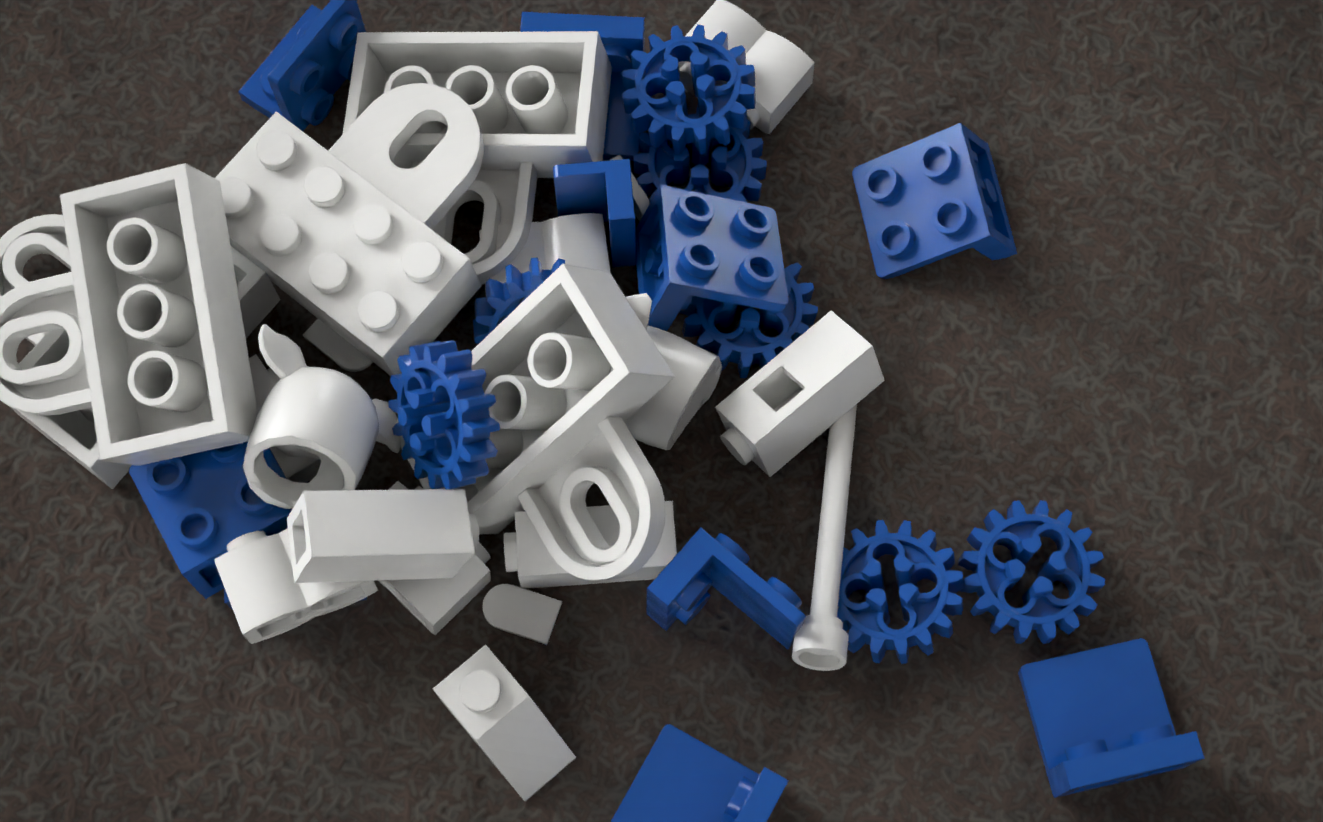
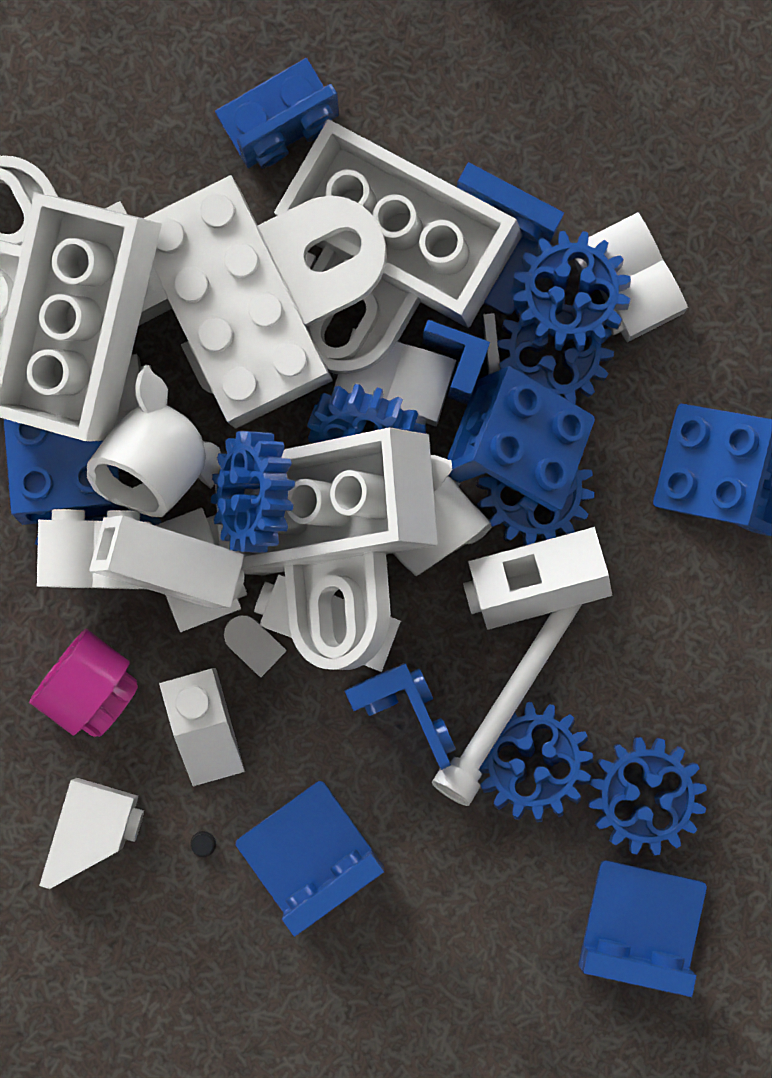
camera: 25 degrees right, 15 degrees up
(351, 738) = (86, 687): none -> dark pink piece

